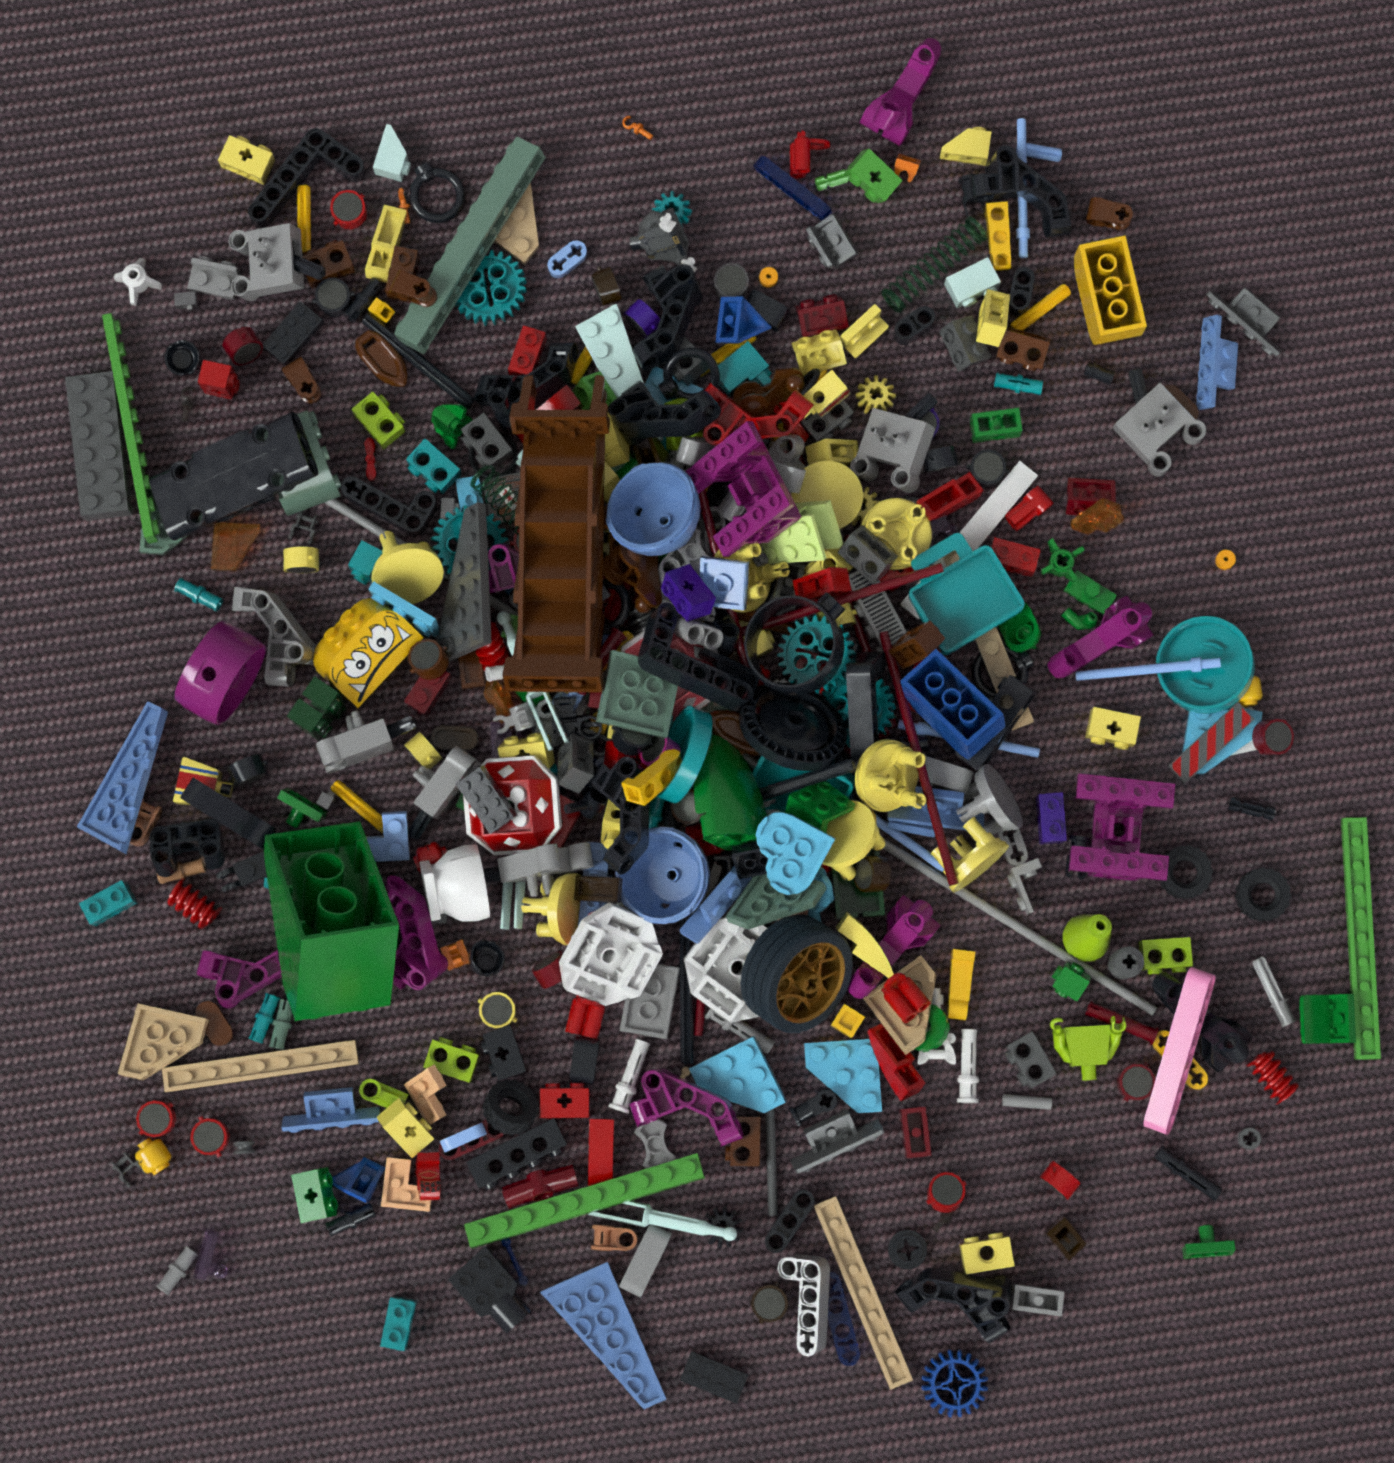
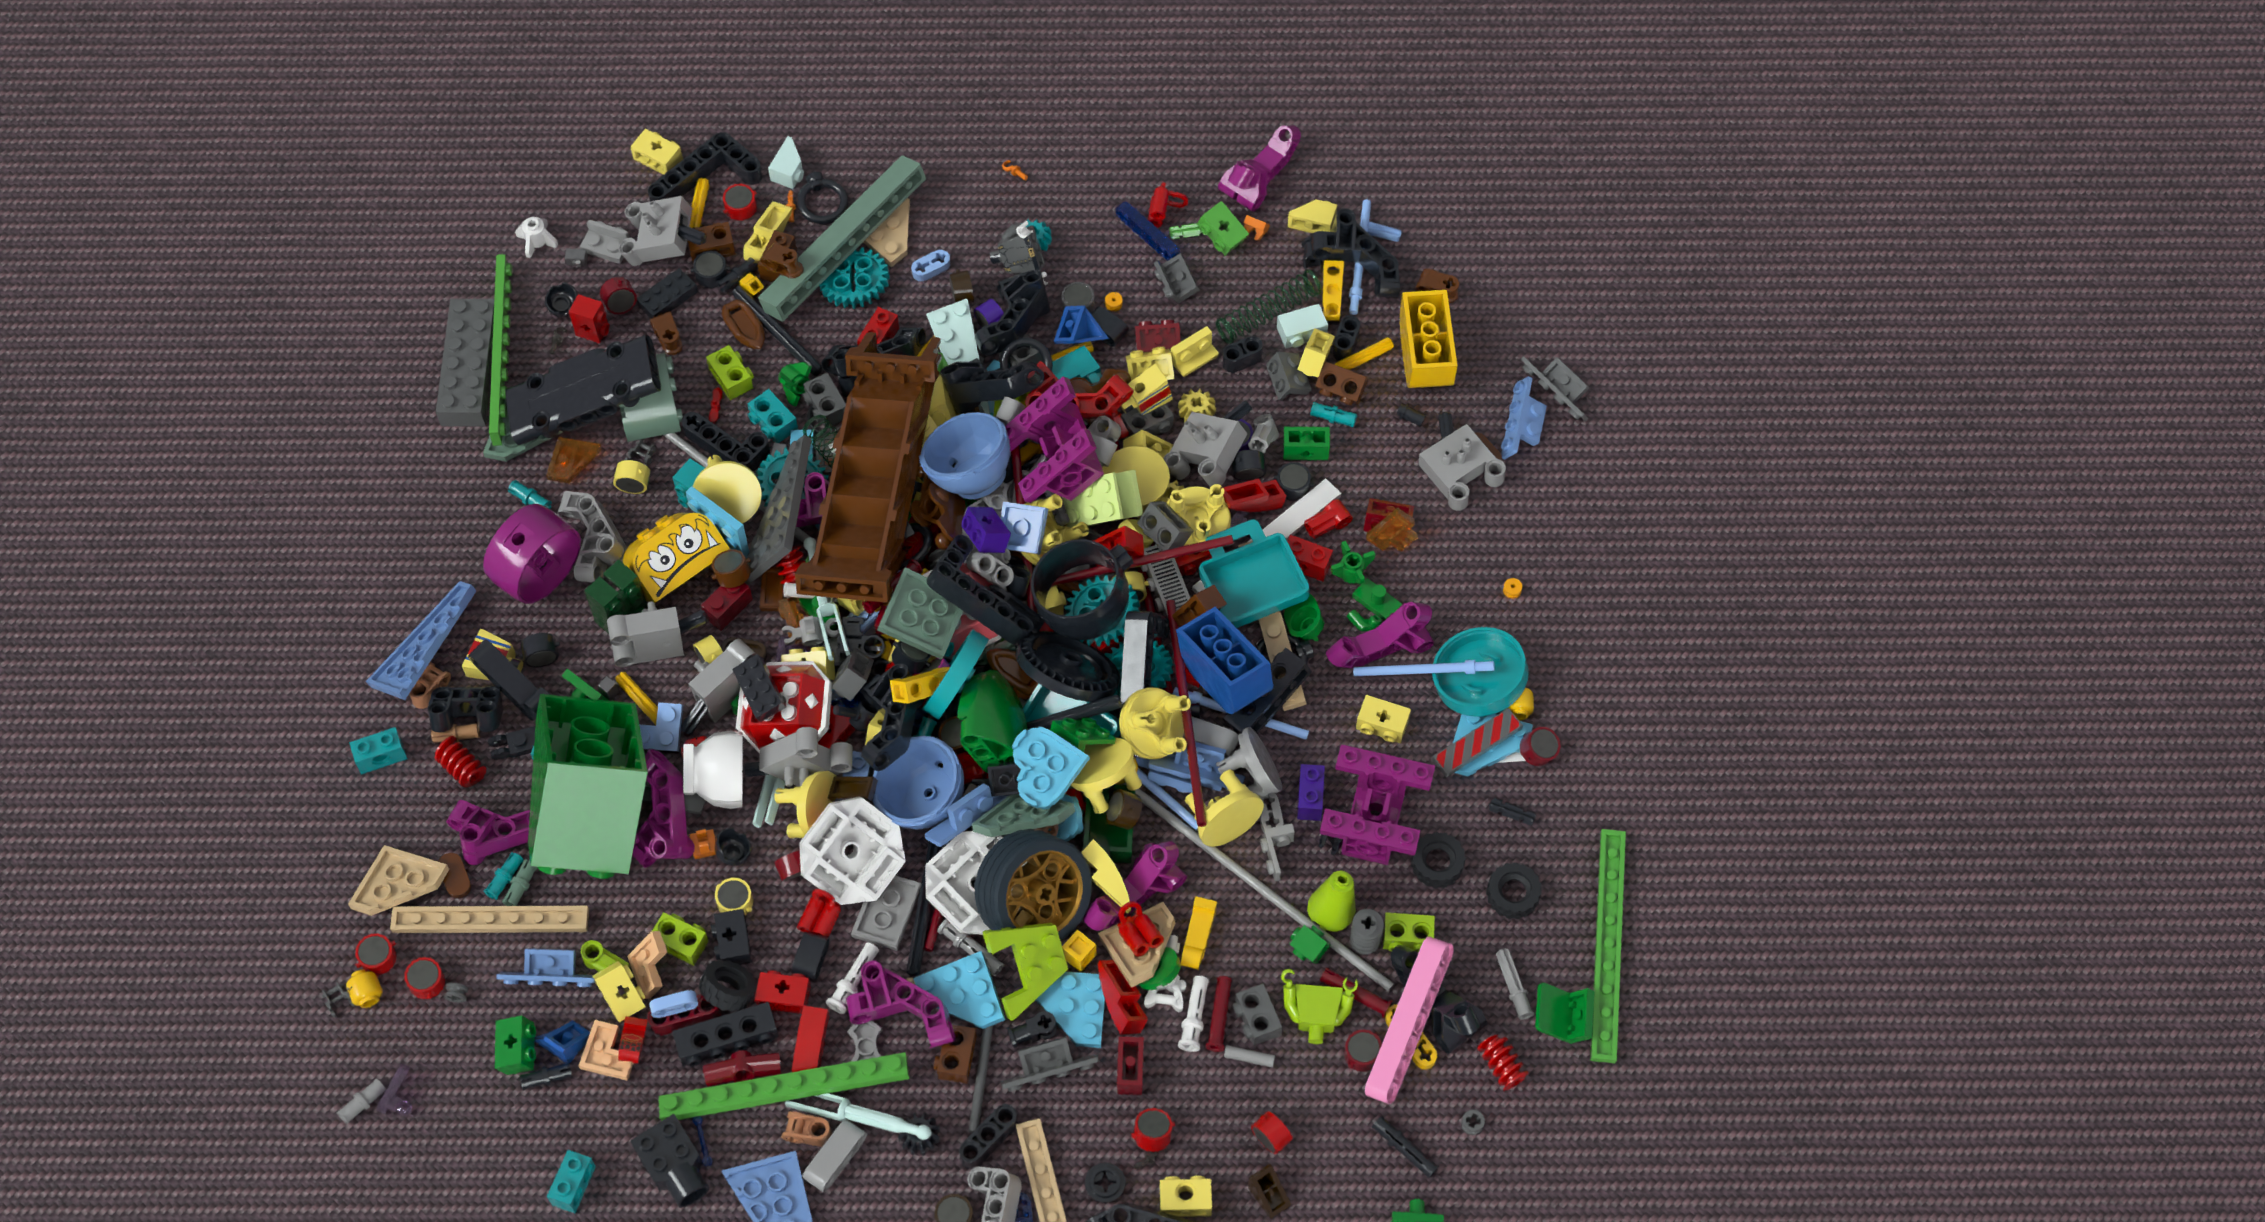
camera: 10 degrees right, 20 degrees down
(811, 1042) = (1037, 958): none -> lime wing
(950, 421) = (1264, 433): none -> light grey piece
(992, 1063) = (1219, 1014): none -> dark red pin

